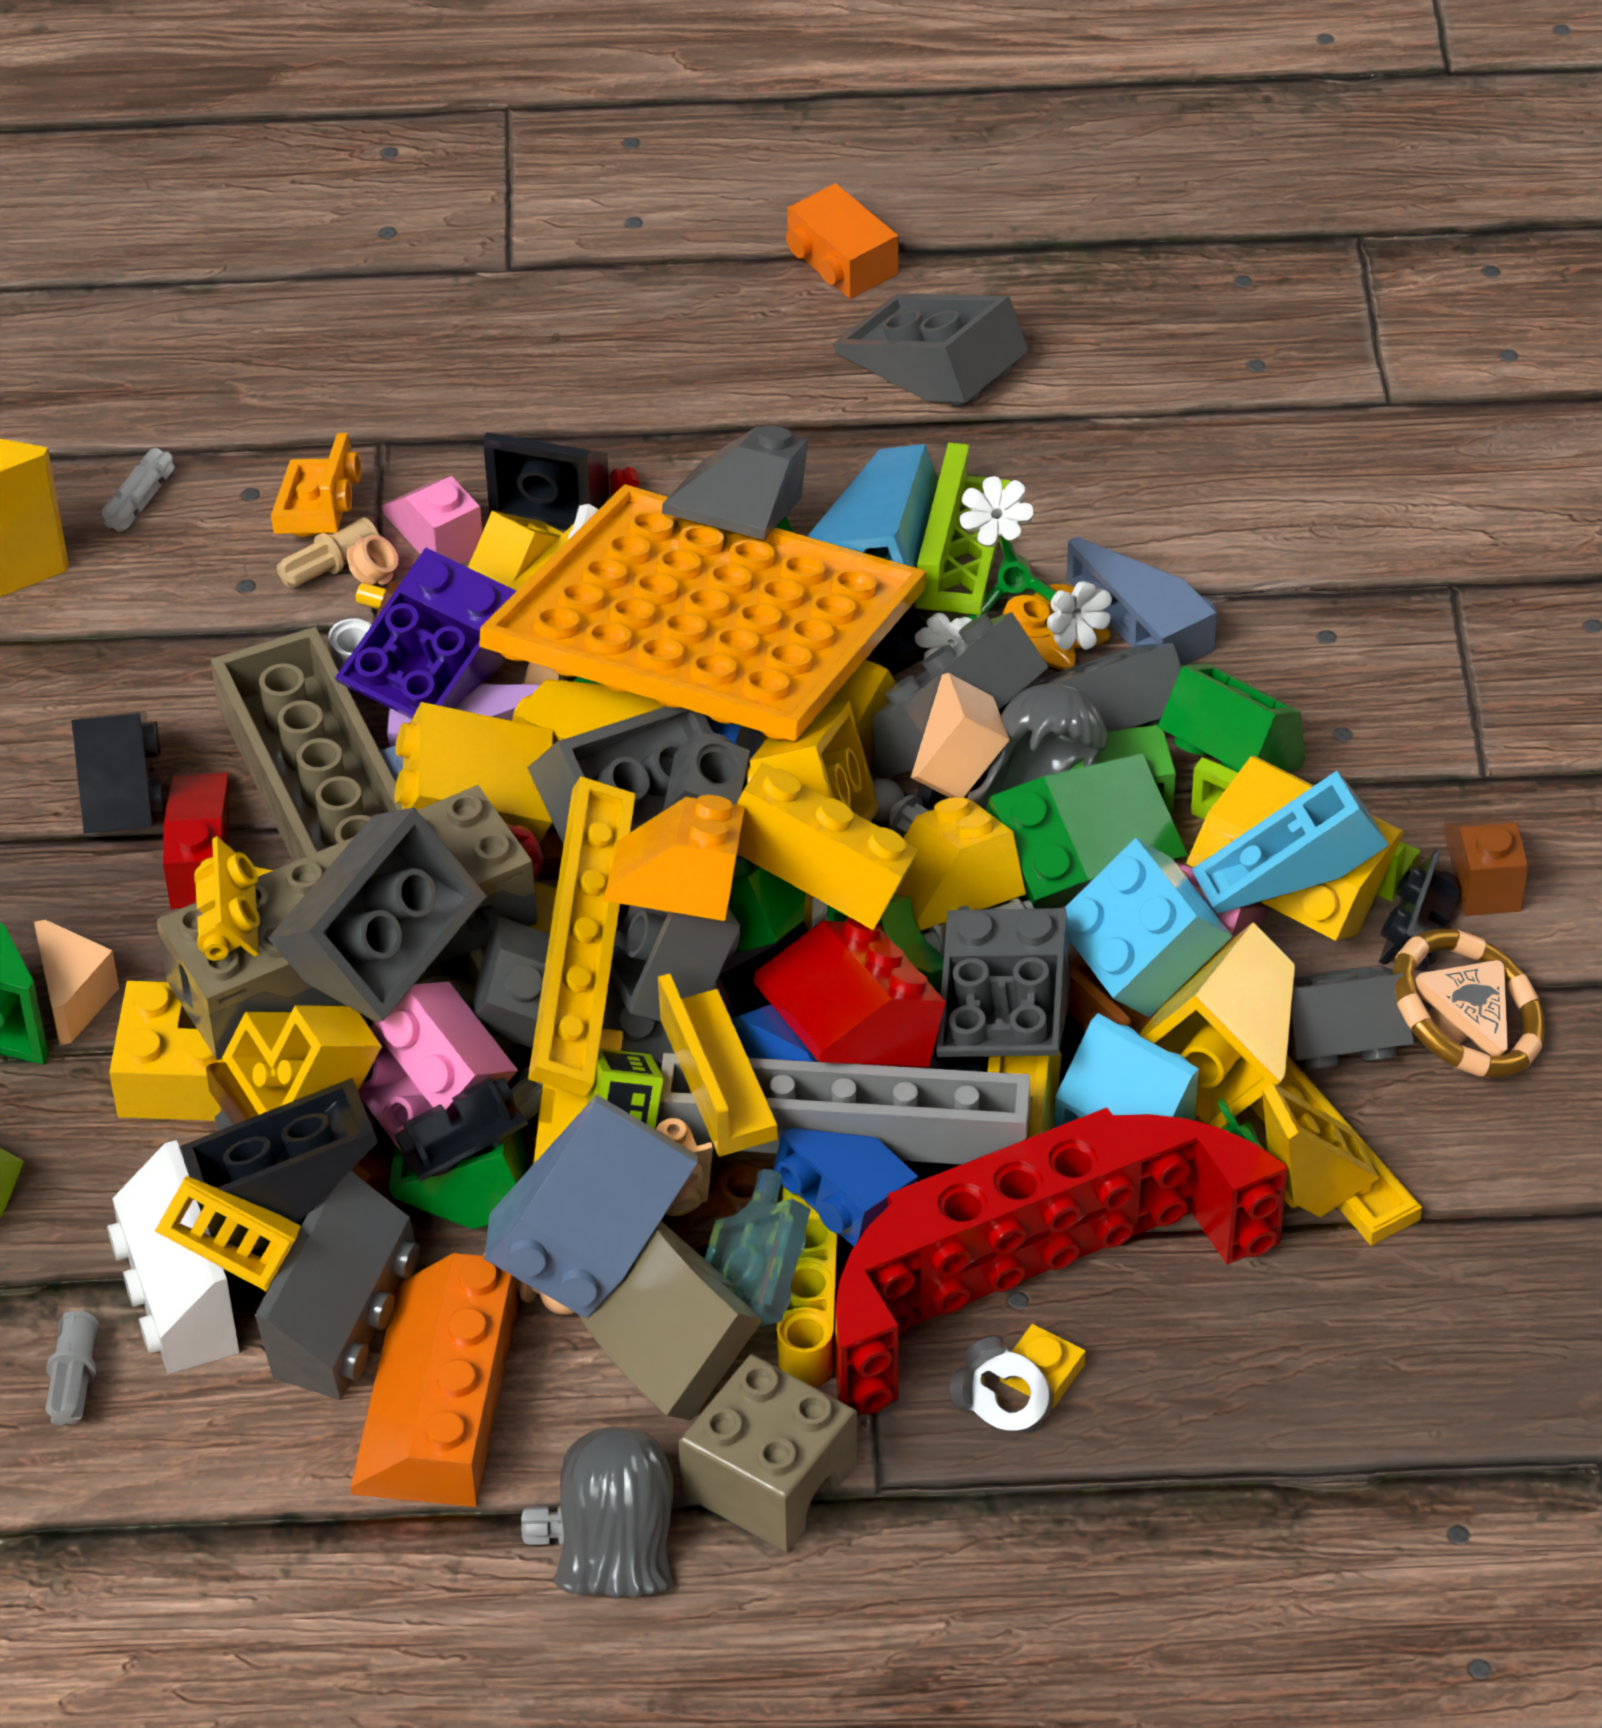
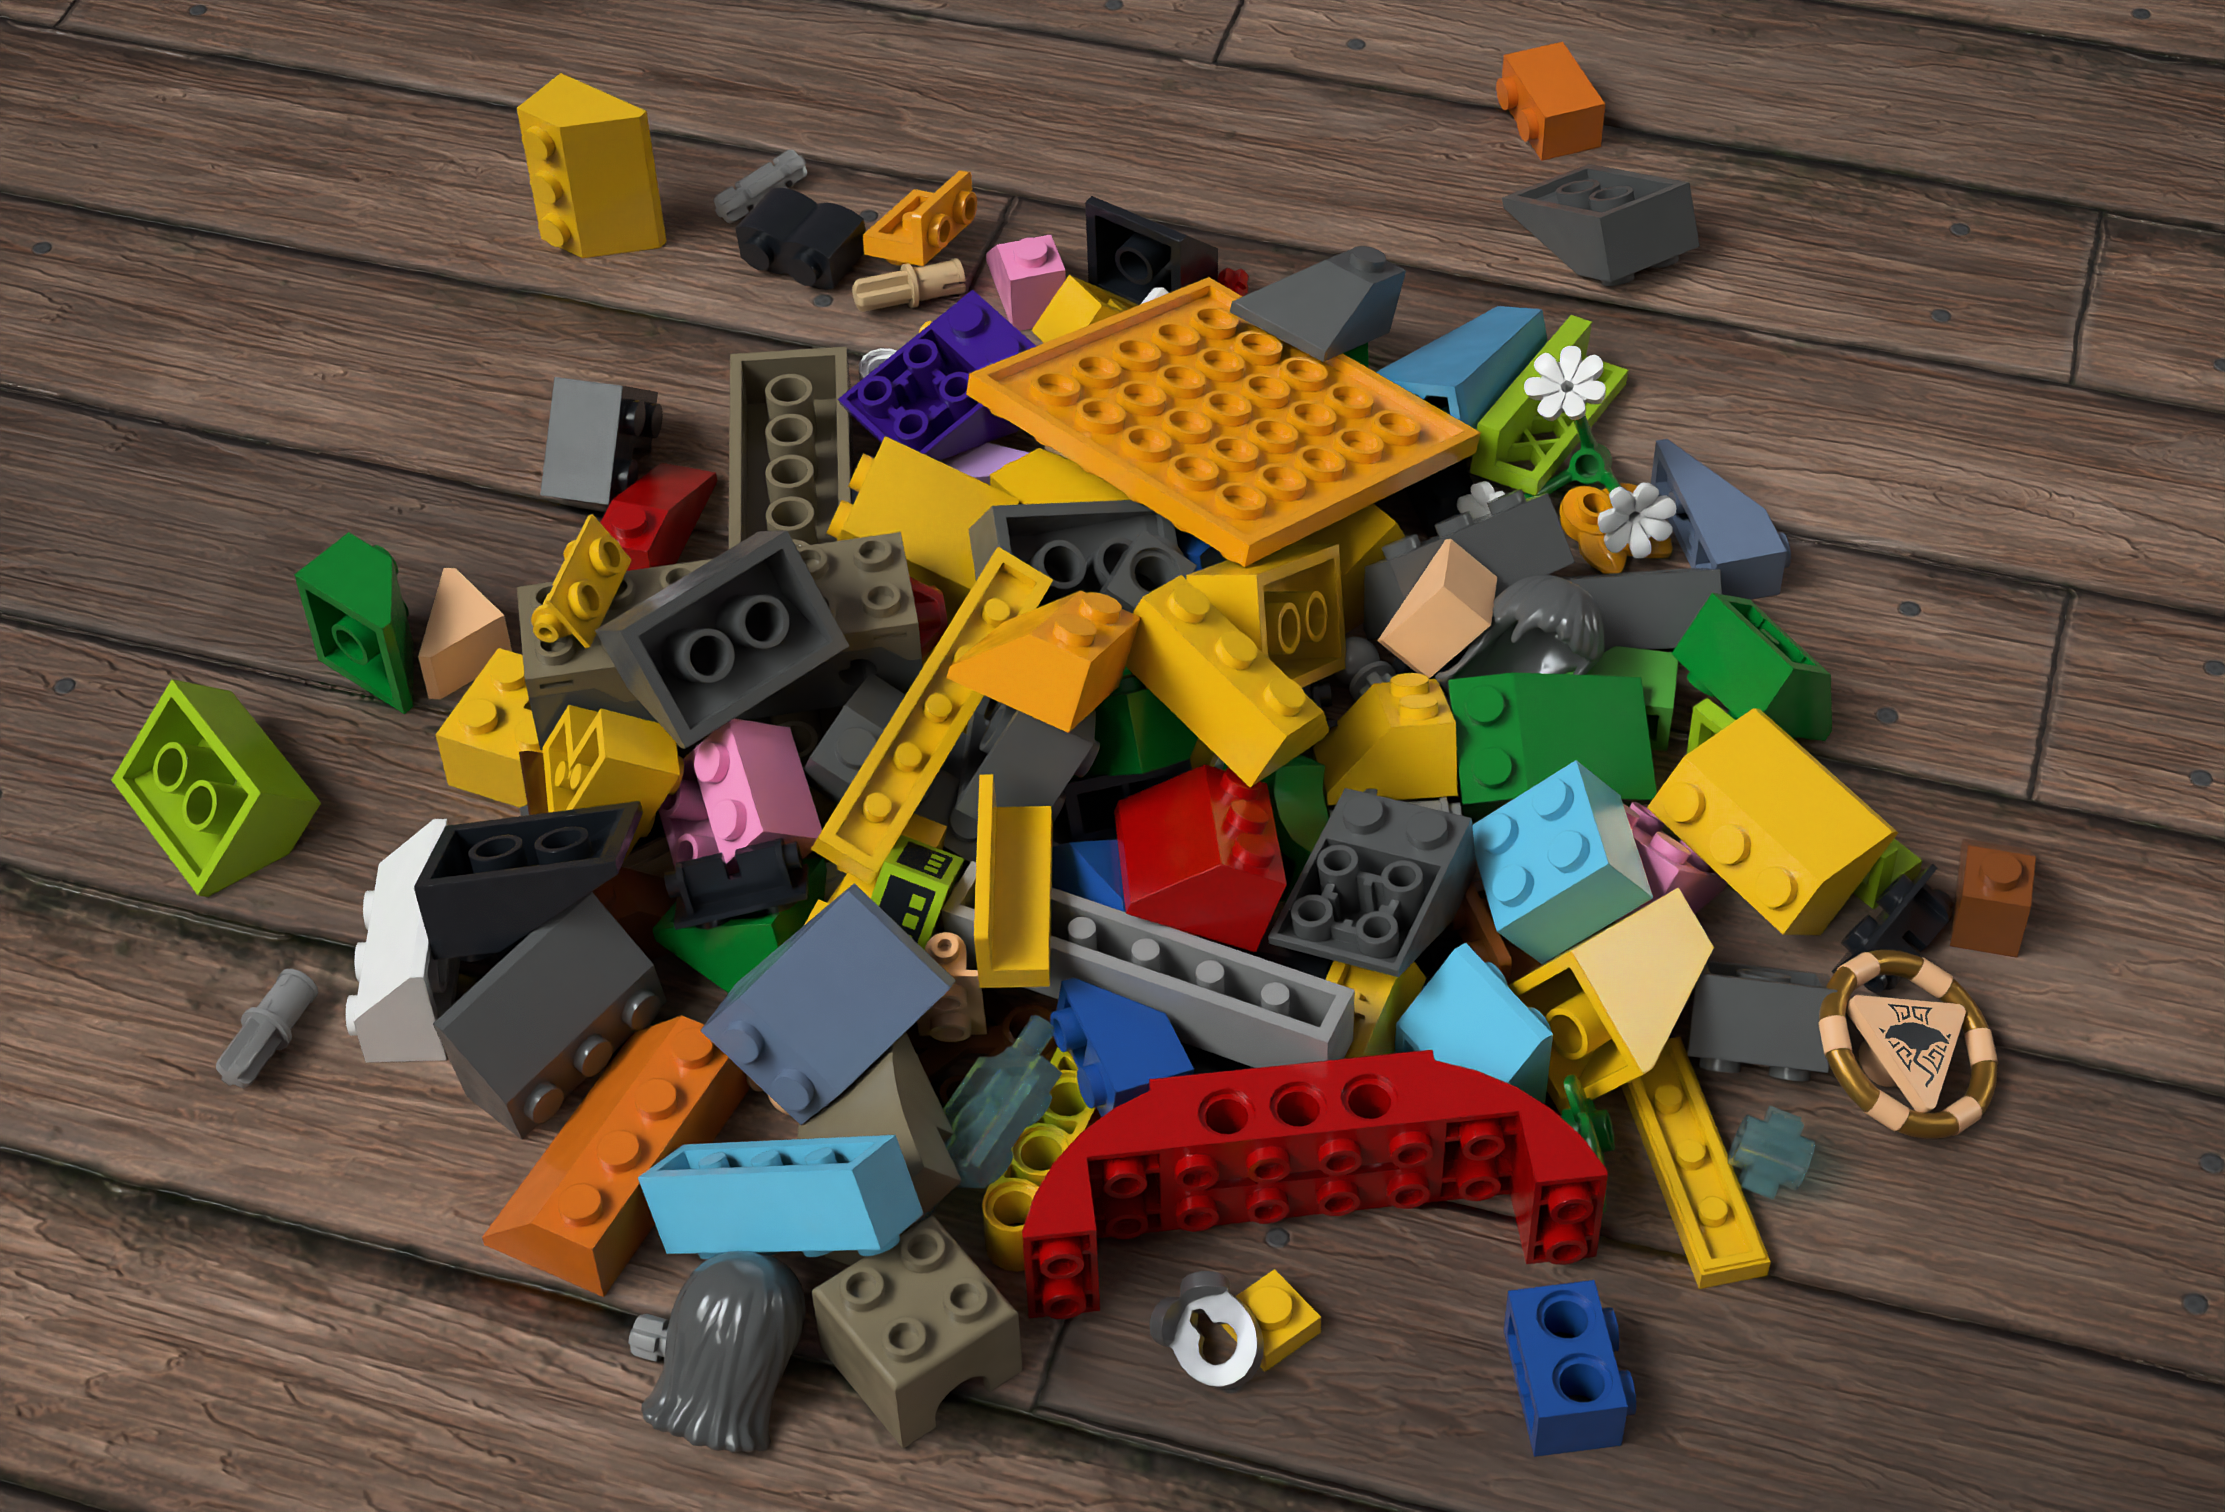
camera: 20 degrees right, 0 degrees up
(206, 531) = (801, 238): none -> black brick
(234, 1259) = (451, 911): yellow slope -> none
(372, 560) = (943, 294): light nougat plate -> none
(618, 1374) = (782, 1196): none -> medium azure brick
(1290, 1338) = (1558, 1367): none -> blue brick
(1295, 848) = (1760, 818): medium azure slope -> none
(1319, 1151) = (1657, 1167): yellow slope -> none
(1392, 1119) = (1771, 1152): none -> clear light blue gear

